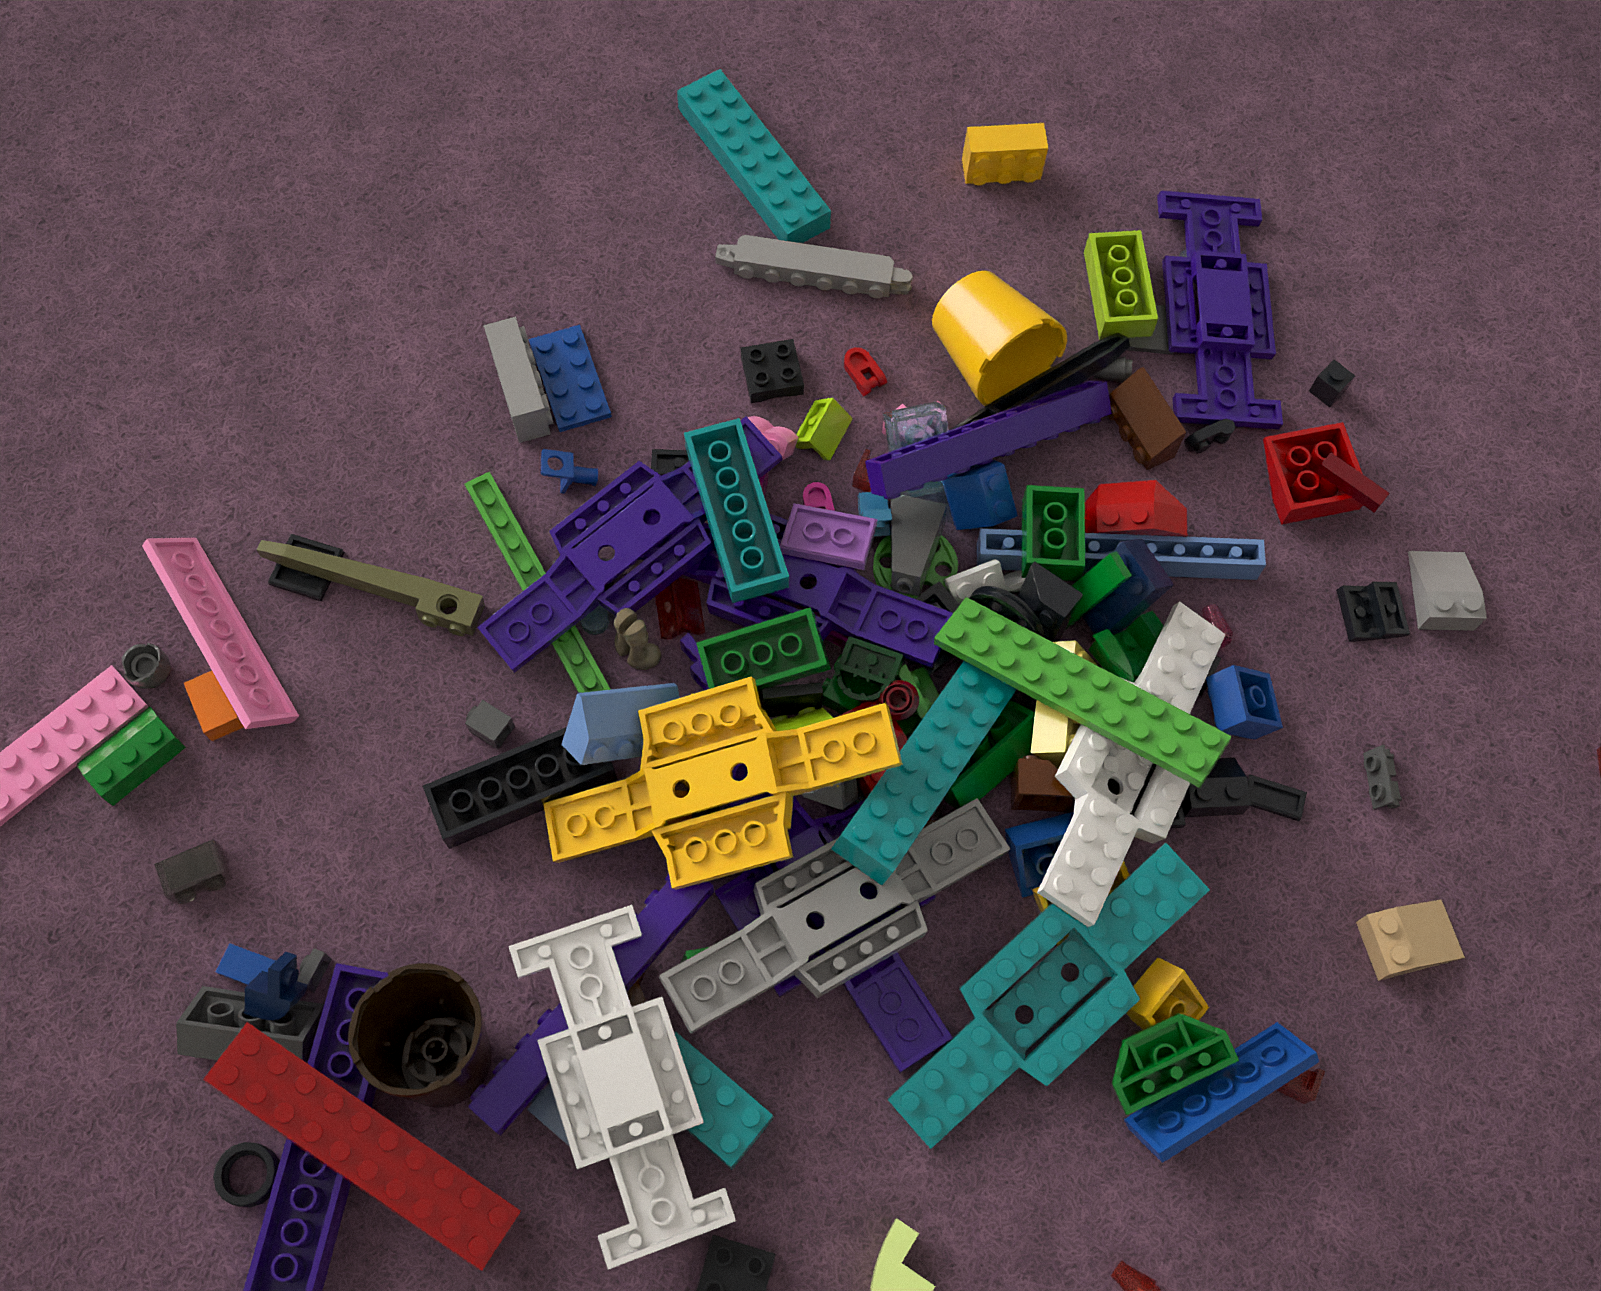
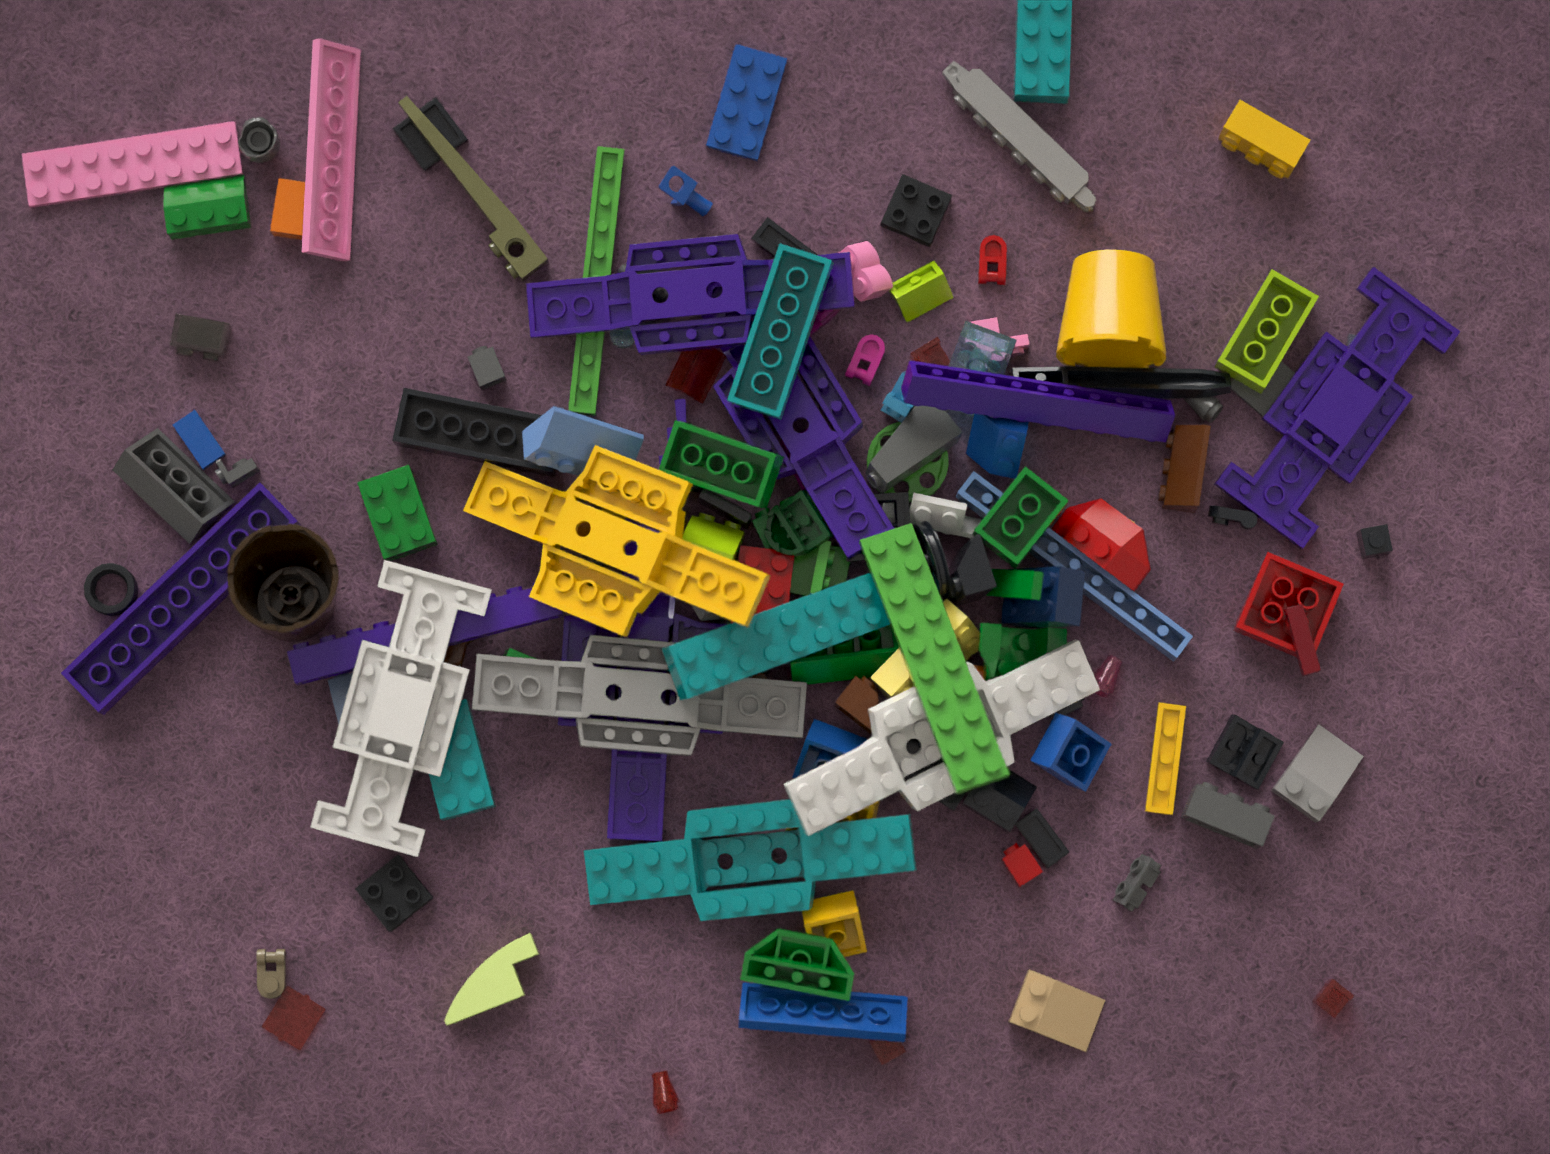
camera: 40 degrees right, 15 degrees up
(275, 991) = (204, 473): dark blue brick -> none
(362, 1146) = (199, 629): red brick -> none
(491, 905) = (397, 513): none -> green brick
(519, 379) = (697, 83): light grey piece -> none
(633, 640) = (637, 372): dark tan piece -> none
(828, 536) = (843, 398): medium lavender tile -> none
(895, 694) = (800, 568): dark red cone -> none
(1278, 831) = (1021, 864): none -> red brick
(1318, 660) = (1165, 758): none -> yellow plate
(1412, 665) = (1228, 815): none -> dark grey brick

